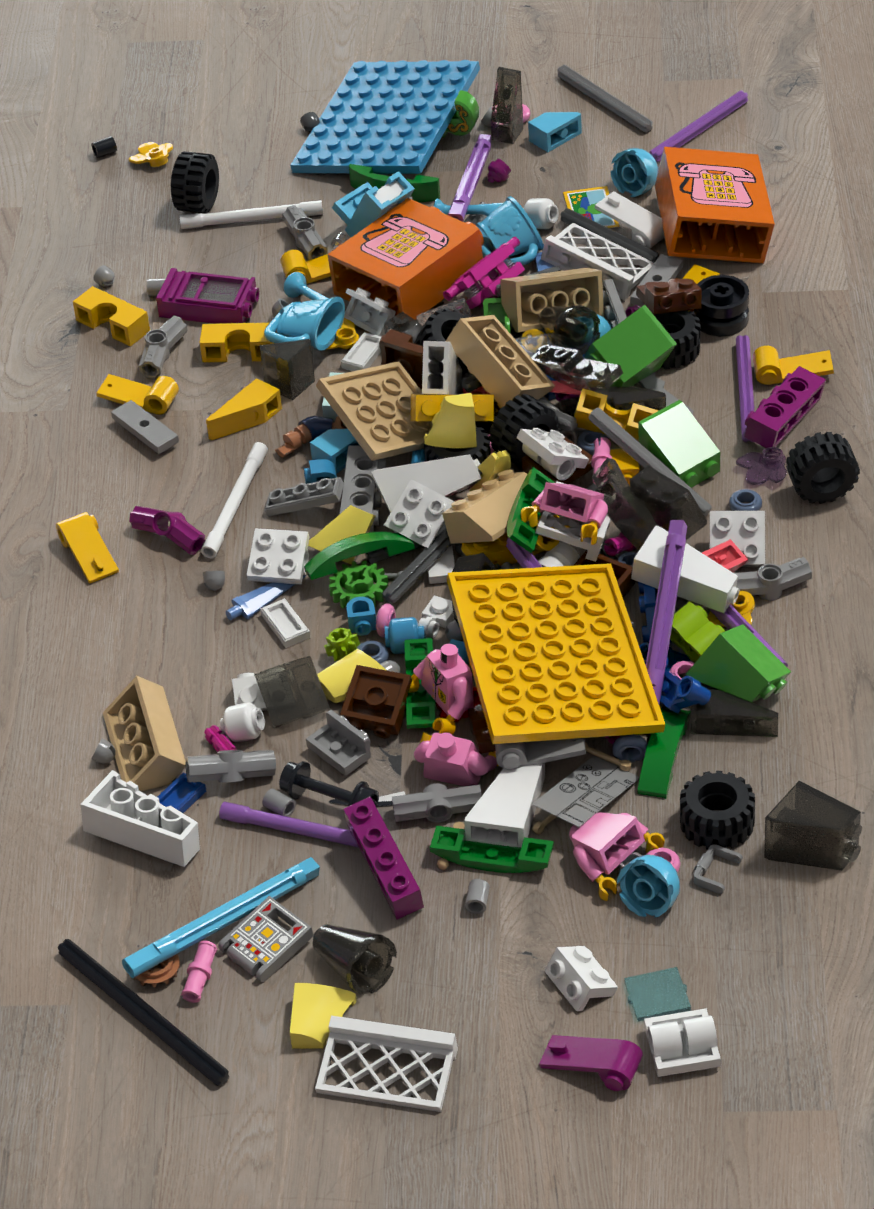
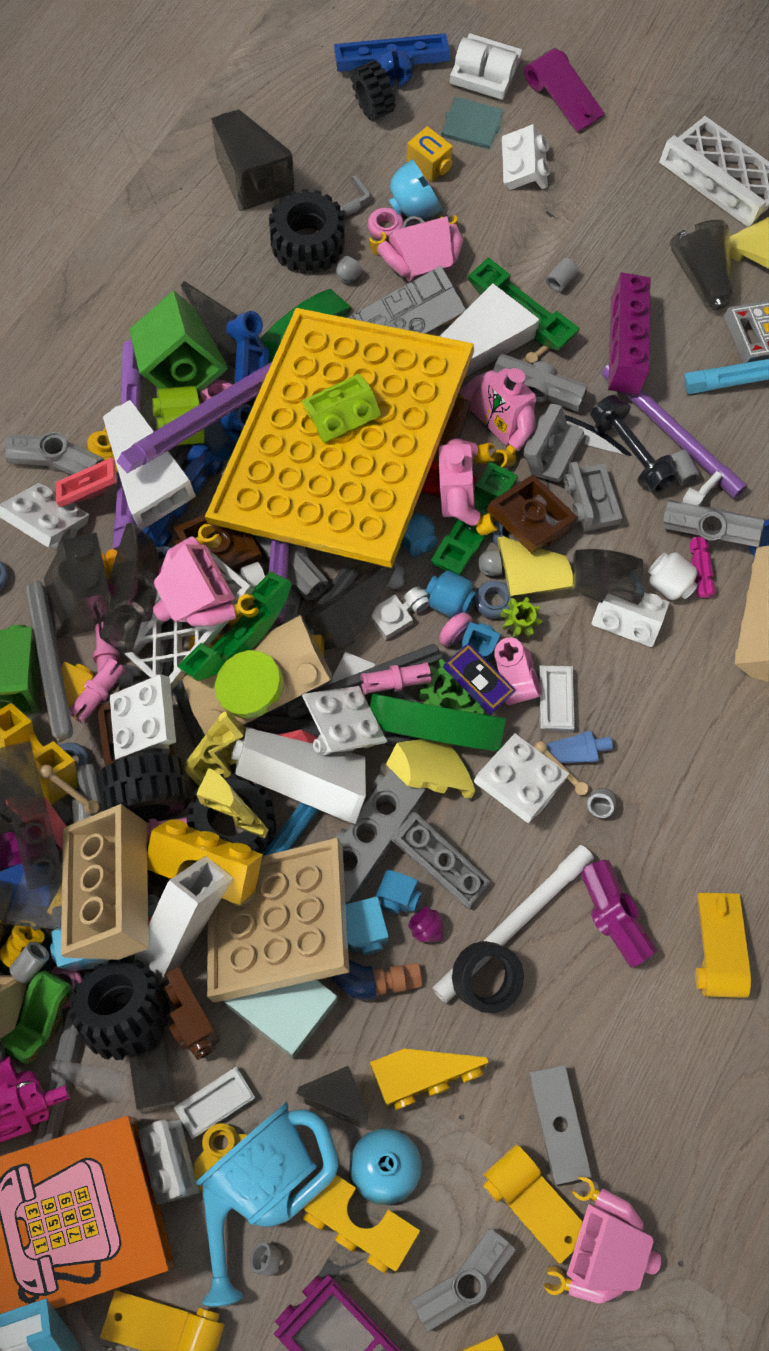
camera: 155 degrees left, 25 degrees up
(84, 383) = (609, 1251): none -> bright pink torso
(233, 457) = (509, 989): none -> black tyre
(238, 367) = (382, 1186): none -> medium azure cylinder
(257, 786) = (695, 497): none -> white hand
(276, 583) = (580, 787): none -> tan hinge
(291, 471) = (427, 925): none -> magenta plate
(320, 612) = (518, 672): none -> bright pink piece
(343, 581) = (479, 678): none -> tile
(393, 759) = (552, 445): none -> light grey bracket
(403, 557) = (395, 678): none -> bright pink pin
(493, 481) = (249, 684): none -> lime tile
(511, 326) = (29, 962): none -> light grey hinge
(565, 648) = (342, 407): none -> lime bracket
(584, 387) = (90, 807): none -> tan hinge
(661, 810) = (348, 270): none -> light grey hinge
(667, 931) = (430, 153): none -> yellow brick
(760, 946) = (373, 90): none -> black tyre
(776, 1003) = (393, 54): none -> blue plate

